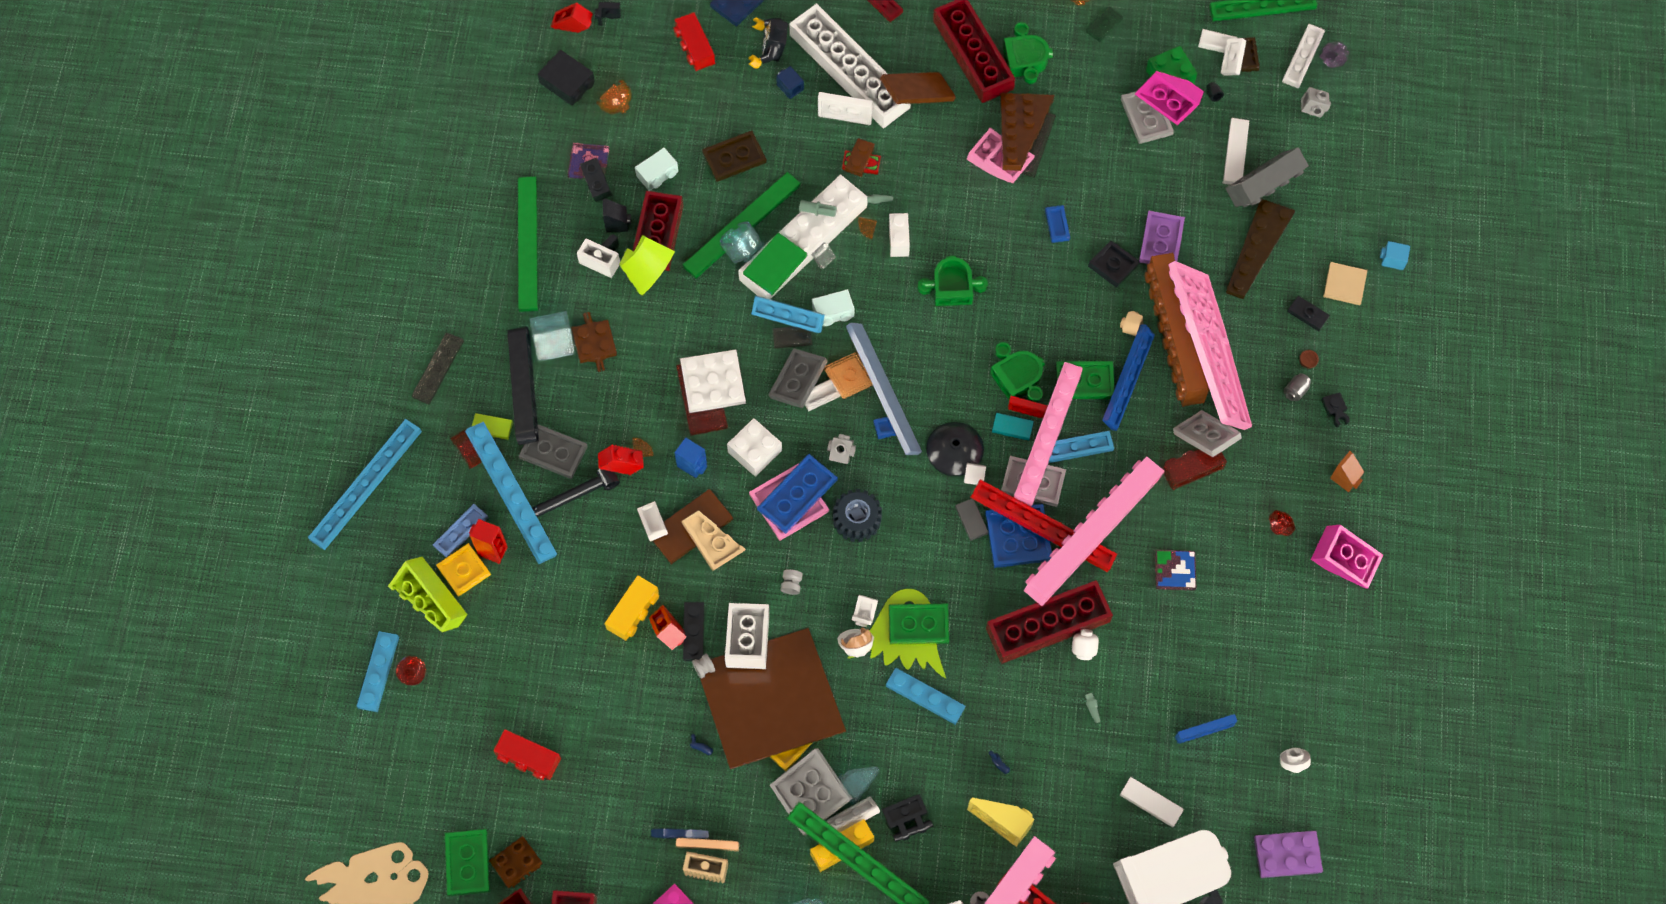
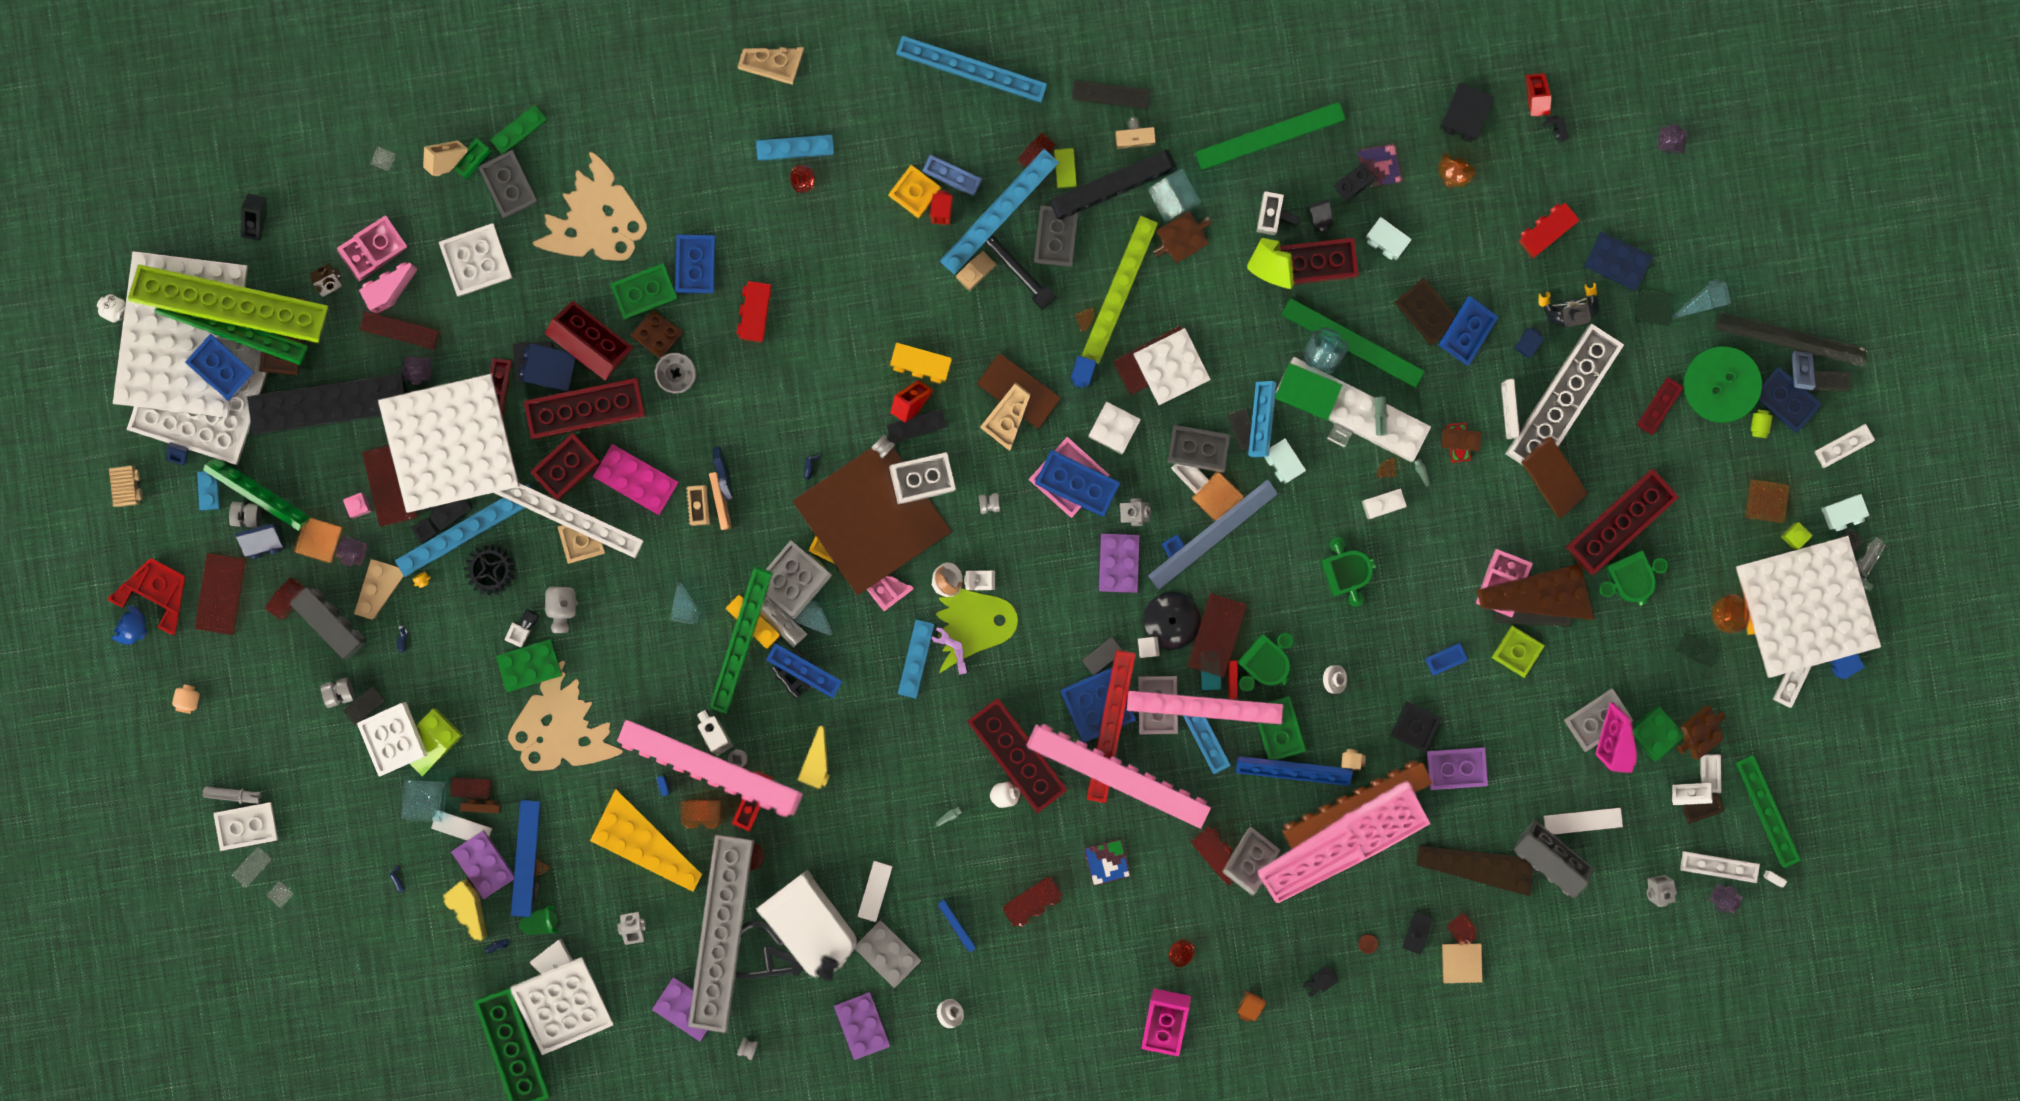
camera: 75 degrees right, 20 degrees up
(287, 668) = (772, 63): none -> tan wing
(428, 594) = (879, 168): lime wedge -> none
(457, 802) = (695, 263): none -> blue plate
(484, 355) = (1135, 136): none -> tan piece
(561, 534) = (975, 270): none -> tan slope
(561, 839) = (665, 377): none -> light grey wheel
(620, 459) = (1061, 305): red brick -> none
(621, 408) = (1119, 289): none -> lime plate
(652, 521) = (1012, 354): white tile -> none
(763, 125) = (1468, 331): none -> blue plate
(851, 702) = (888, 591): none -> bright pink wing
(857, 515) = (1072, 546): black wheel -> none
(886, 480) = (1119, 563): none -> medium lavender plate
(907, 805) = (804, 670): none -> blue plate
(918, 624) = (984, 634): green tile -> none
(945, 652) = (945, 639): none -> lavender piece
(980, 411) = (1216, 635): none -> clear red tile
(998, 763) = (871, 743): dark blue piece -> none
(1051, 319) = (1335, 679): none -> white plate
(1066, 164) = (1518, 651): none -> lime tile
(1180, 34) = (1701, 732): none -> reddish brown plate
(1199, 649) = (1032, 902): none -> clear red brick
(1214, 92) = (1647, 783): black hose -> none
(1219, 806) = (887, 954): none -> light grey plate
(1226, 861) = (826, 968): none -> black wheel
(1297, 387) = (1331, 938): flat silver brick -> none
(1314, 271) = (1462, 930): none -> clear red brick
(1324, 14) = (1774, 879): none -> white tile
(1395, 255) = (1506, 1006): dark azure brick -> none

